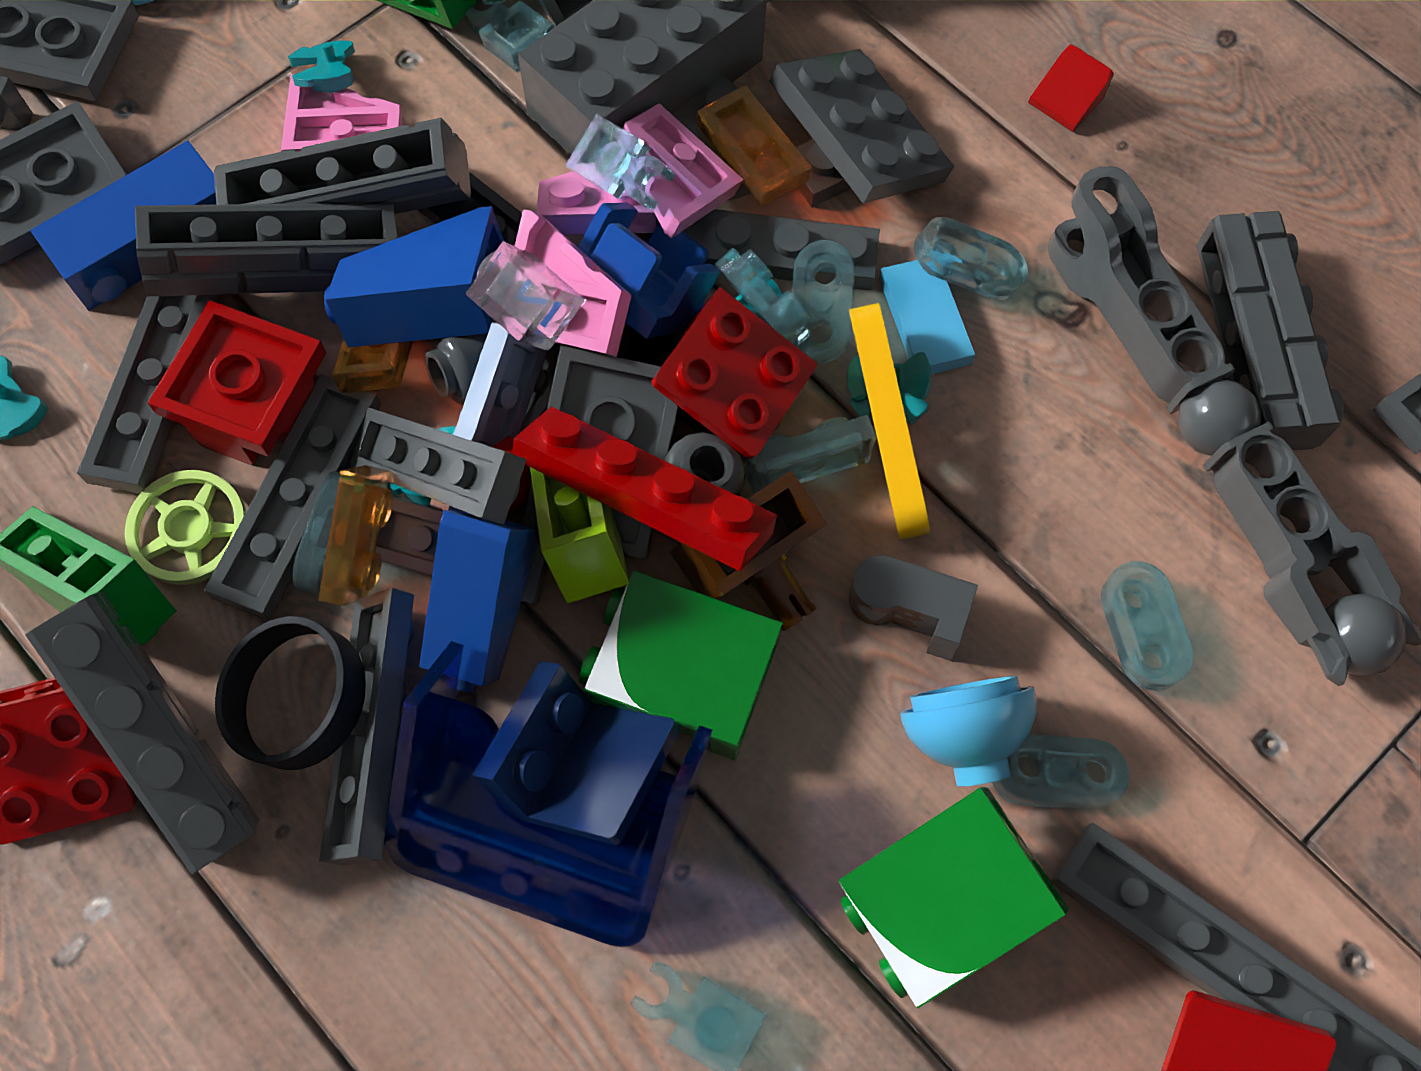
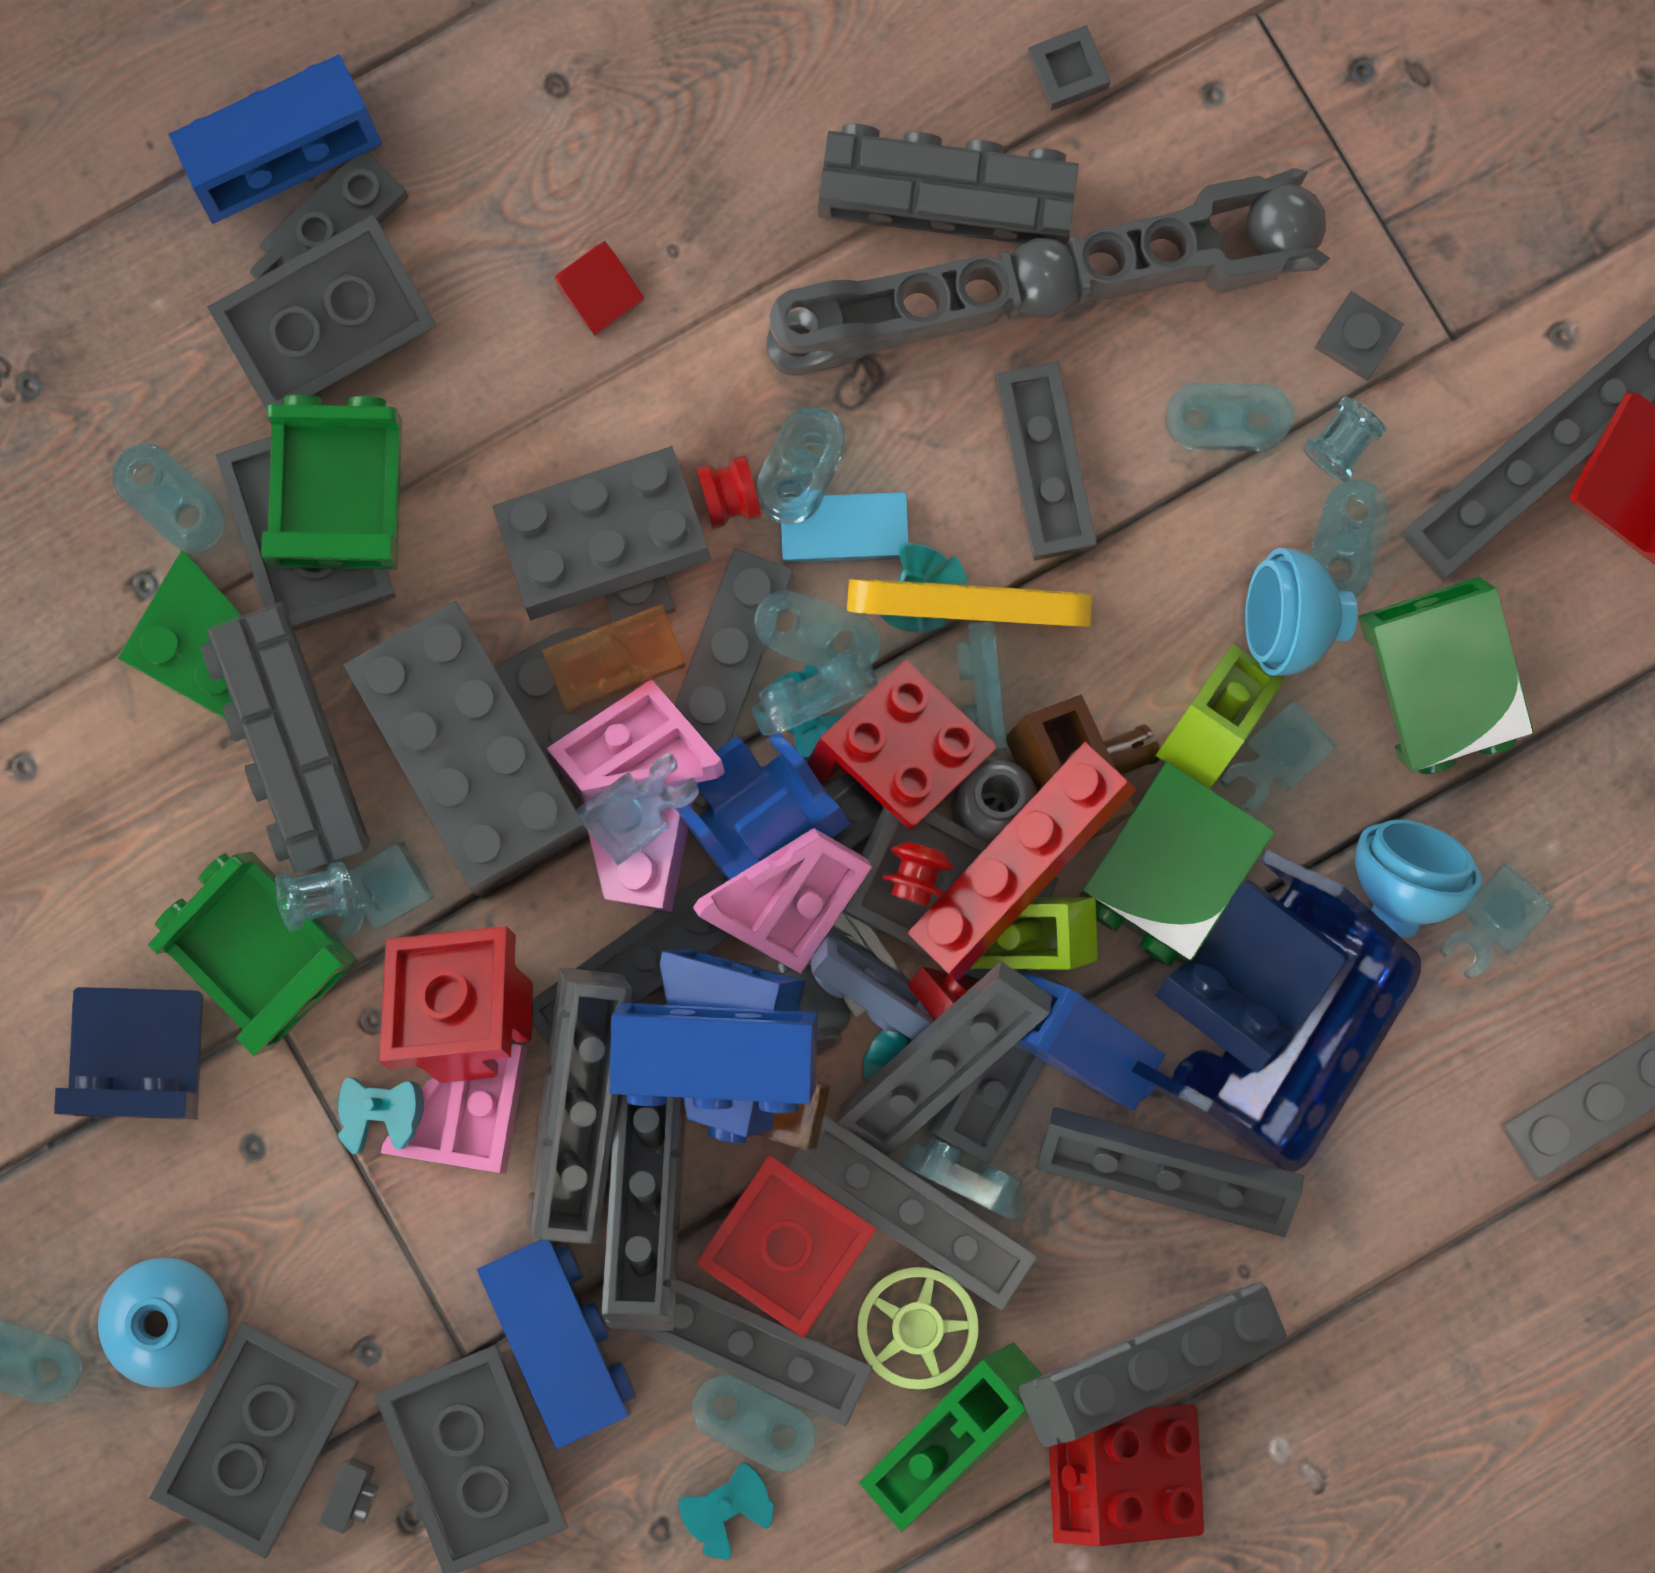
camera: 75 degrees left, 15 degrees up
(71, 401) = (752, 1425): none -> clear light blue plate
(238, 675) = (1133, 1301): black tyre -> none
(351, 556) = (972, 1135): clear orange plate -> none
(388, 236) = (713, 1056): none -> blue brick
(420, 71) = (454, 1003): none -> red panel
(524, 296) = (801, 934): clear brick -> none
(608, 394) = (917, 873): none -> red wheel
(727, 909) = (1414, 874): none -> medium azure piece
(827, 752) = (1285, 751): none -> clear light blue plate
(842, 675) = (1220, 717): none -> lime slope
(914, 599) = (1144, 646): dark grey leg -> none
(923, 202) = (729, 492): none -> red wheel
(1044, 467) = (1045, 461): none -> dark grey plate
(1165, 743) = (1344, 439): none -> clear light blue bush
(1273, 740) = (1359, 335): none -> dark grey plate

